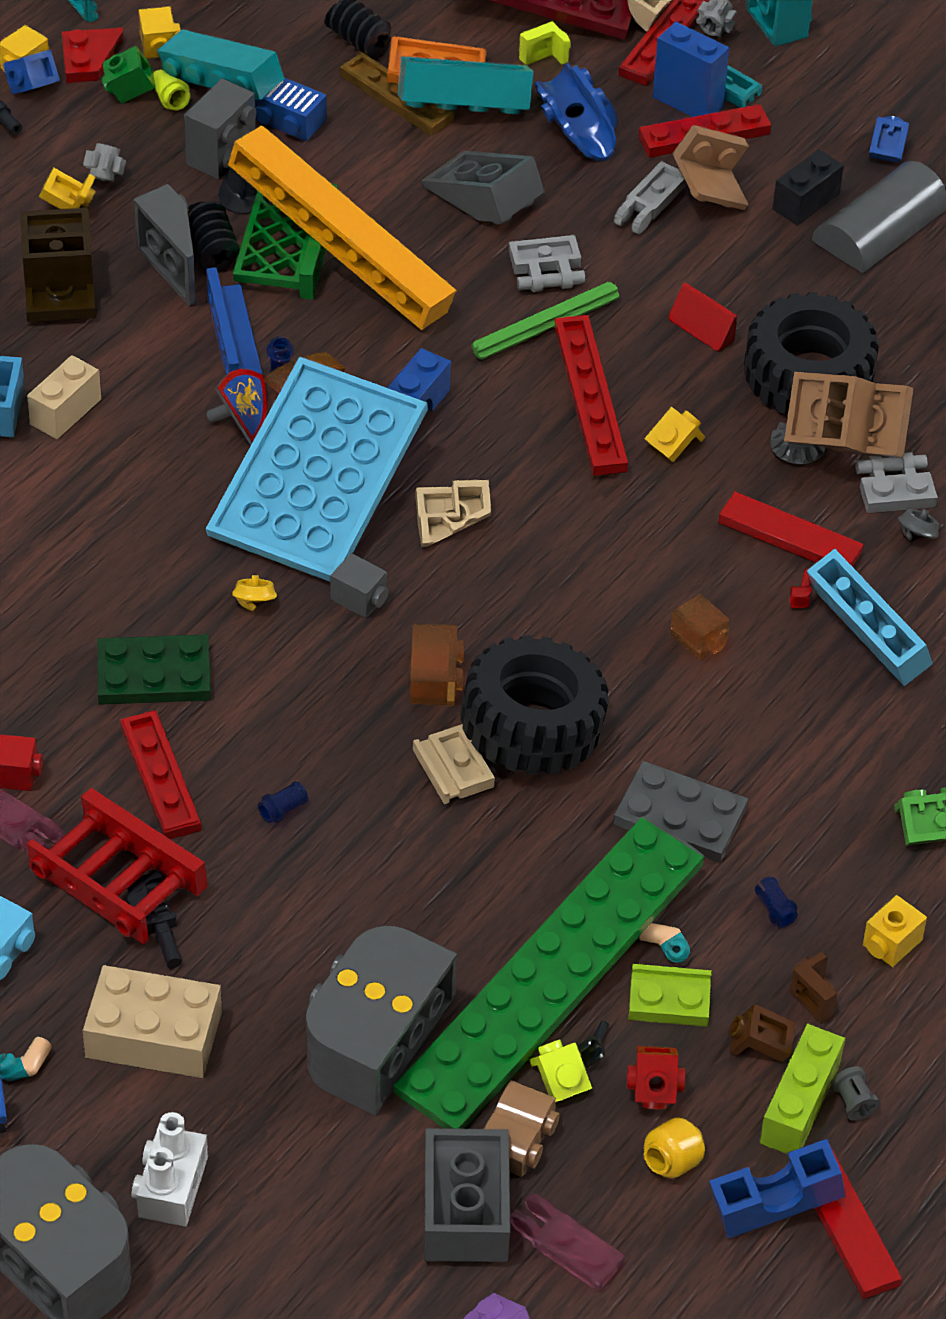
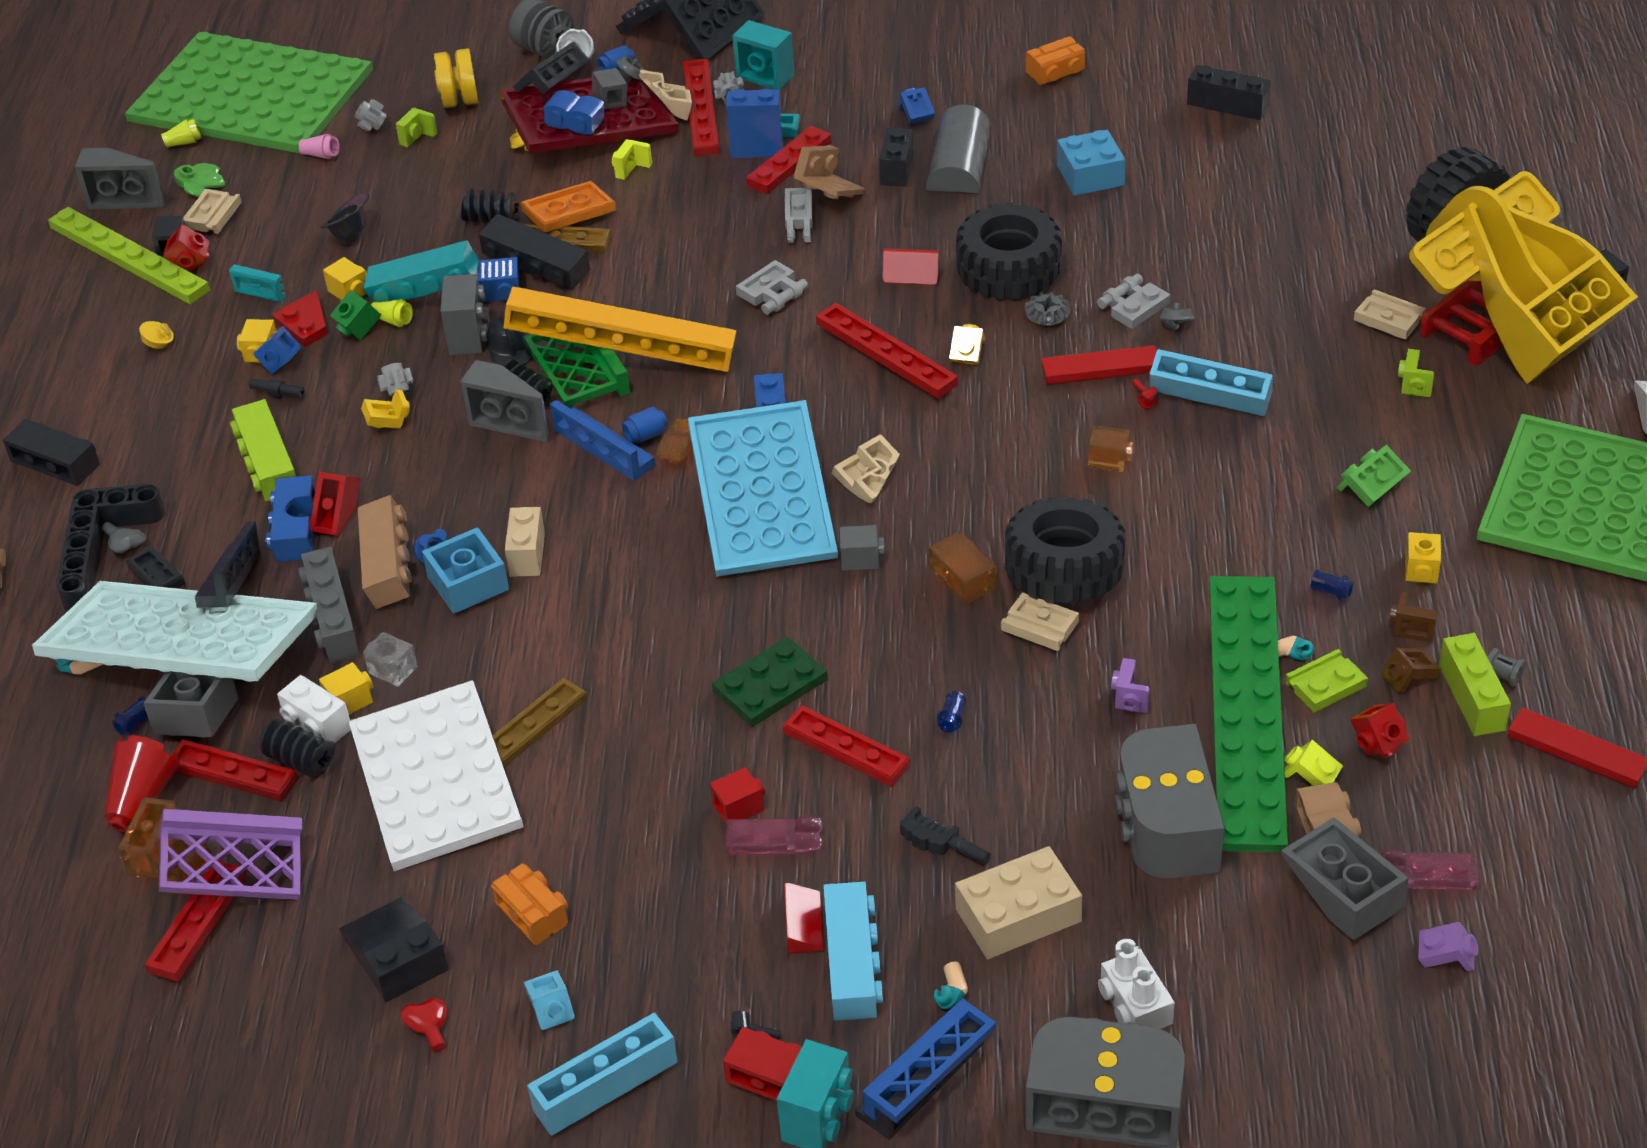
camera: 30 degrees left, 5 degrees down
(57, 264) = (435, 457): dark brown bracket -> none
(125, 834) = (885, 791): red fence -> none
(243, 399) = (654, 477): shield -> none
(253, 591) = (790, 591): yellow hat -> none
(279, 352) = (653, 430): clear blue pin -> none
(293, 333) = (644, 425): none -> blue brick
(352, 98) = (536, 251): none -> black brick
(465, 83) = (607, 203): teal brick -> none
(465, 877) = (1129, 695): none -> medium lavender bracket
(487, 184) = (681, 259): dark grey slope -> none
(544, 320) = (806, 323): bright green axle -> none
(592, 1047) = (1313, 735): black hand -> none
(595, 127) = (717, 188): blue piece -> none
(674, 1148) = (1435, 768): yellow head -> none
(684, 807) = (1191, 565): dark grey plate -> none
(803, 1184) = (1541, 737): blue arch -> none
(848, 414) = (1078, 268): medium nougat bracket -> none

